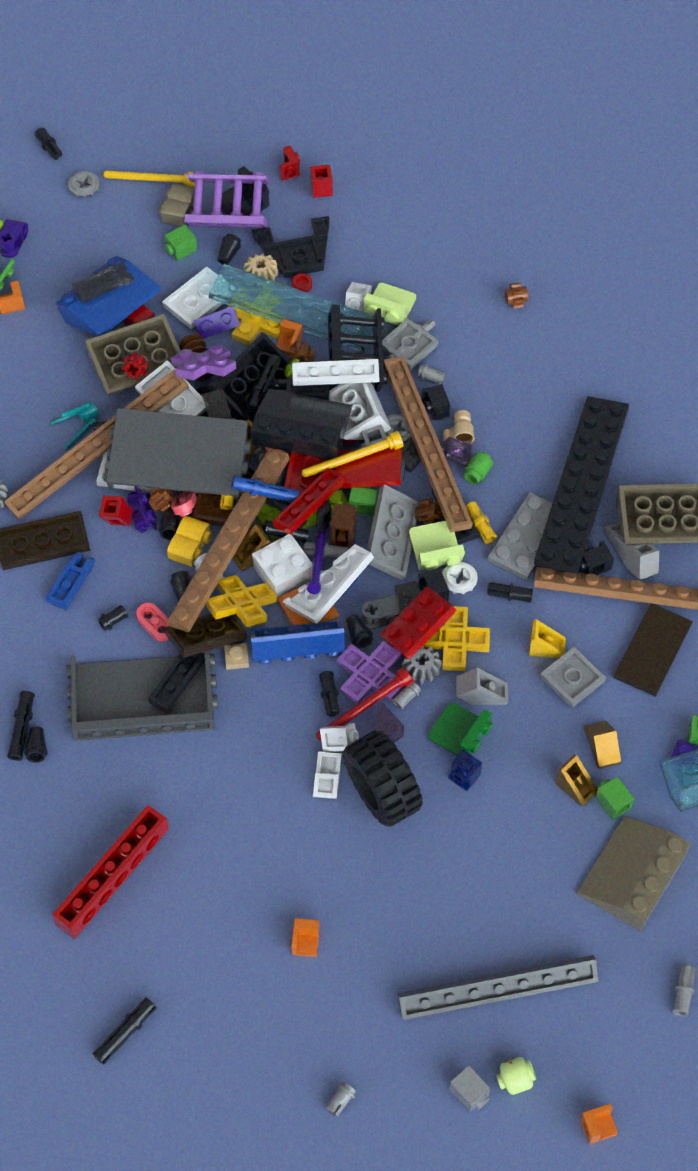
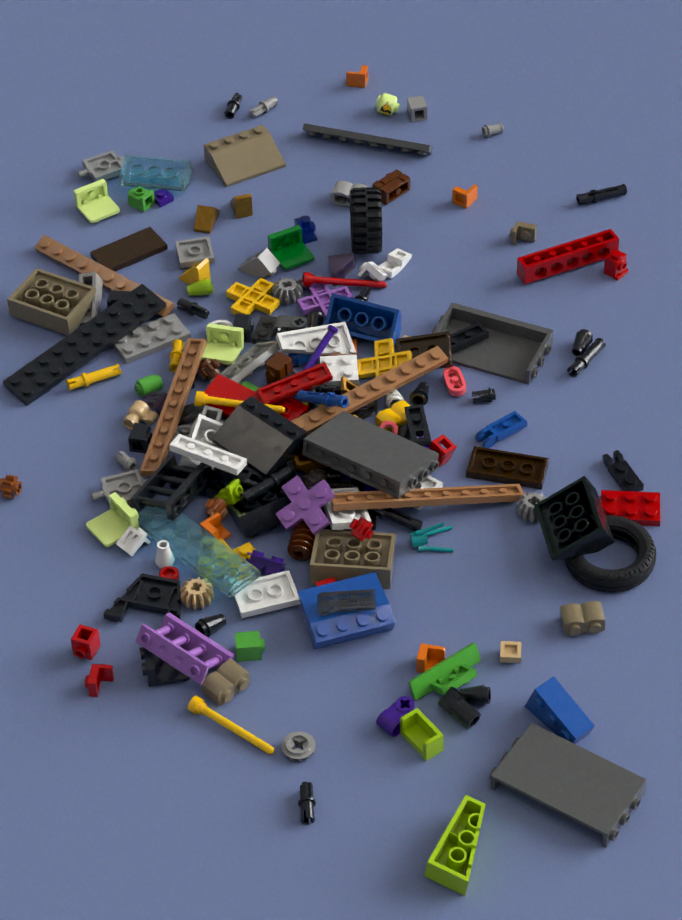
camera: 150 degrees left, 15 degrees down
(47, 892) = (615, 264): none -> red brick
(152, 518) = (417, 424): none -> black plate
(191, 900) = (523, 231): none -> dark tan bracket
(317, 287) = (164, 555): none -> white cone
(408, 904) = (392, 186): none -> reddish brown brick
(418, 622) = (273, 299): red plate -> none
(452, 864) = (341, 193): none -> light grey brick
(521, 626) = (200, 288): none -> lime cone
(548, 449) = (89, 378): none -> yellow pin
(614, 797) = (225, 188): bright green brick -> none

